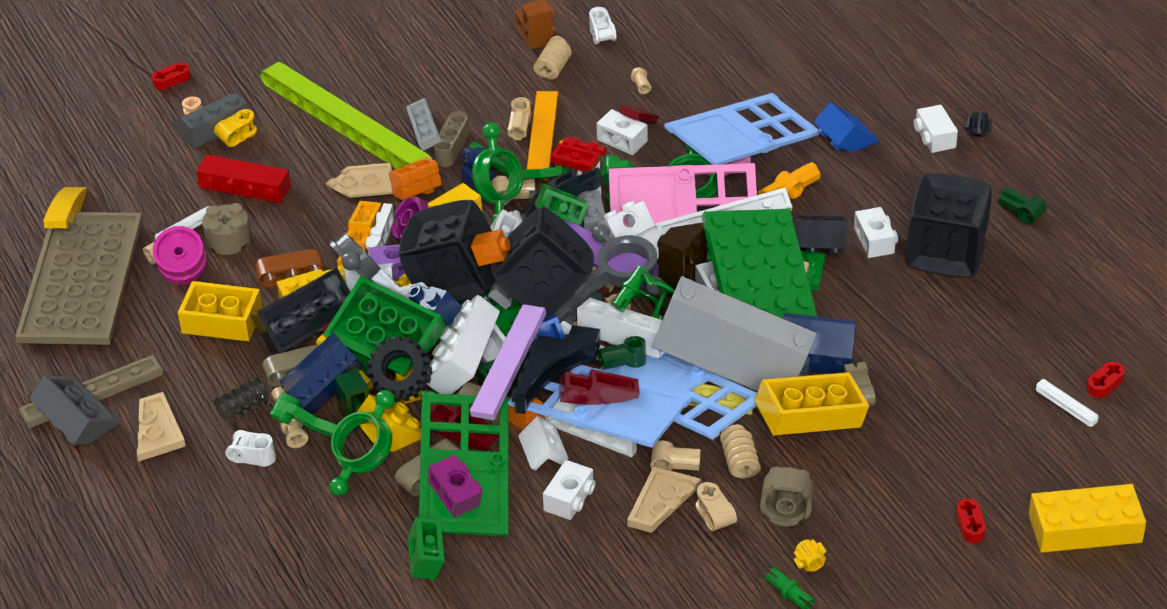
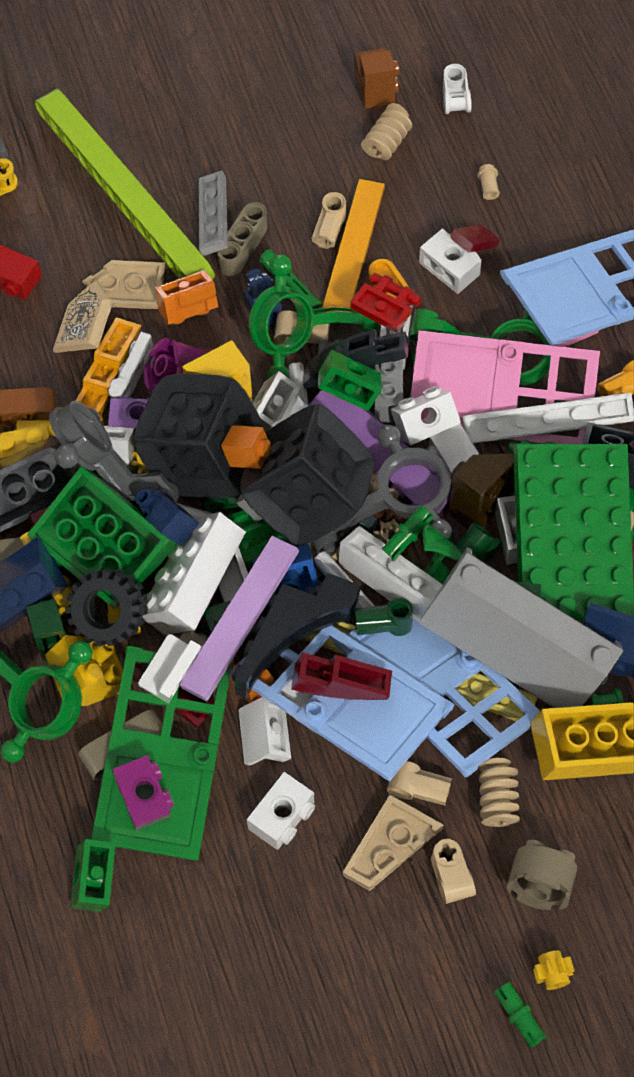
camera: 10 degrees right, 20 degrees up
(334, 205) = (84, 320): none -> tan tile
(459, 400) = (169, 667): none -> white panel

